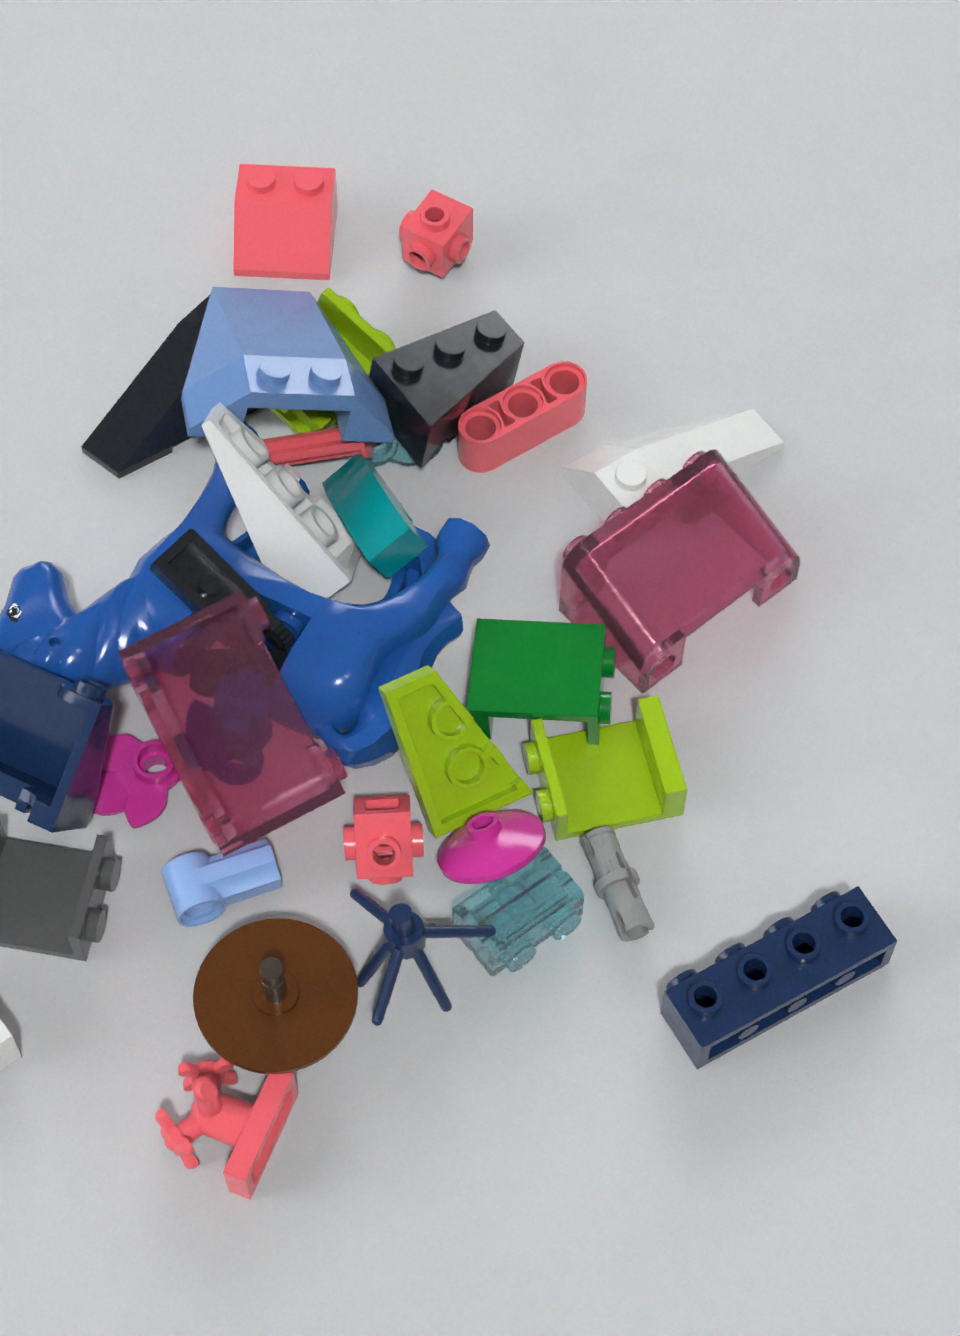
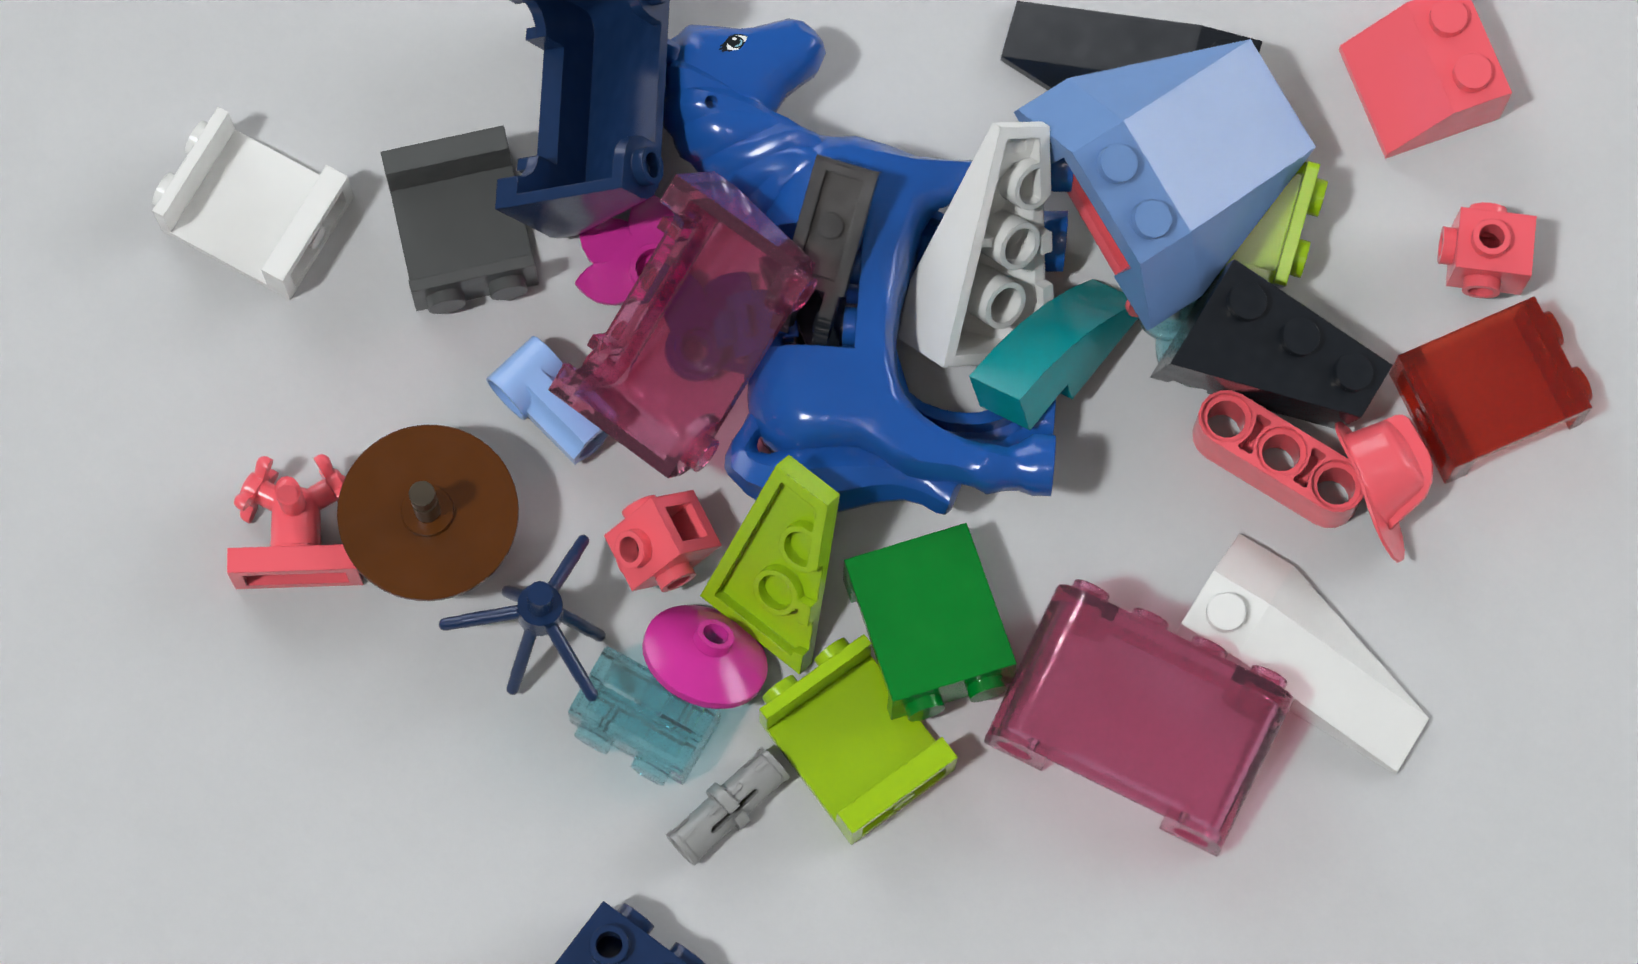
camera: 65 degrees right, 15 degrees up
(538, 274) = (1490, 386): none -> clear red panel
(572, 340) = (1392, 473): none -> coral piece

